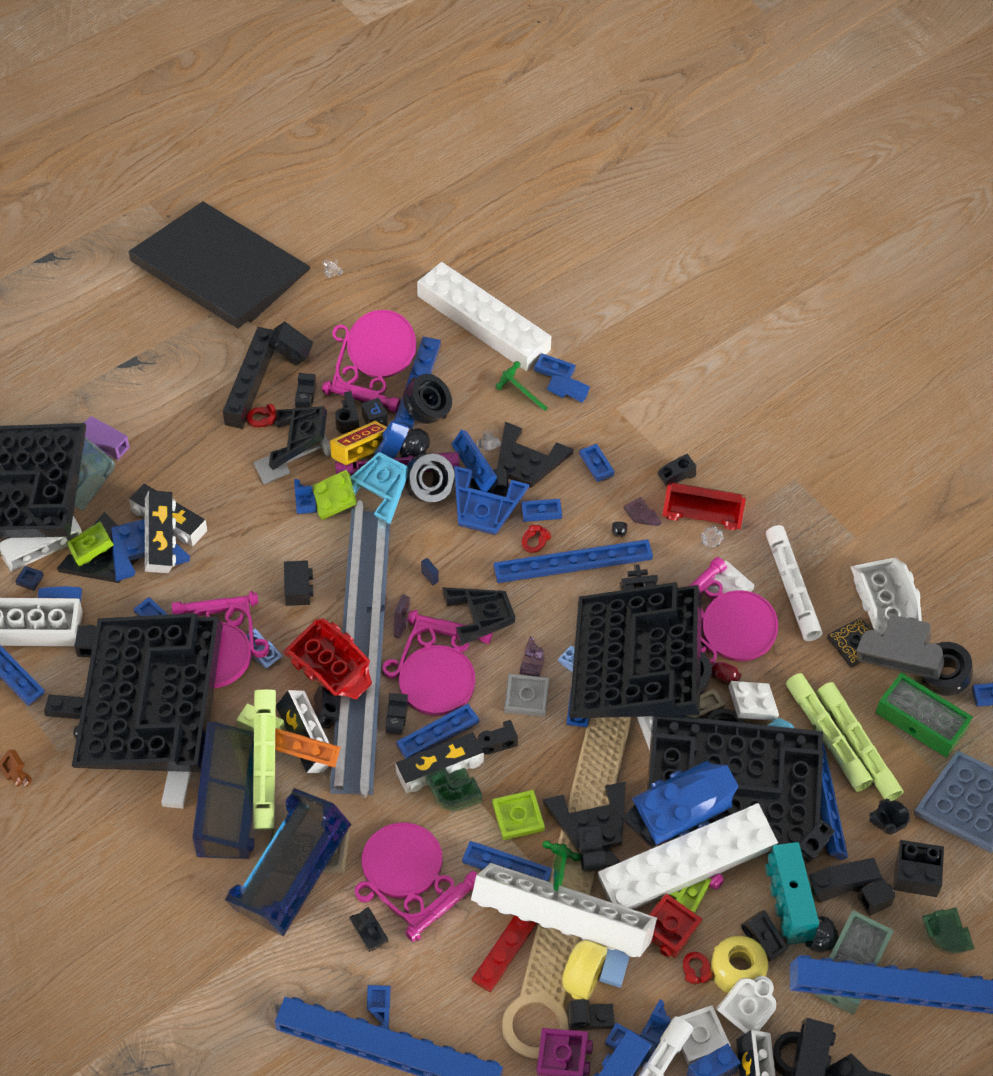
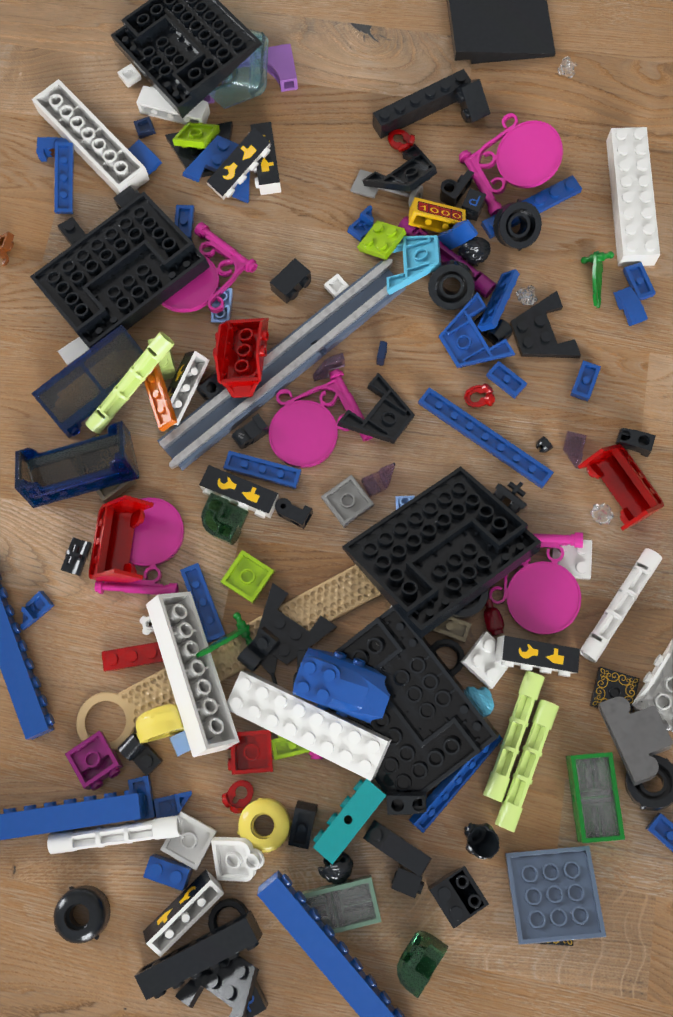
camera: 55 degrees right, 20 degrees up
(305, 390) = (447, 147): black leg -> none
(337, 556) = (336, 285): none -> white plate
(383, 887) = (114, 540): none -> red windscreen
(481, 925) = (145, 623): none -> white plate
(781, 663) = (538, 655): none -> black brick

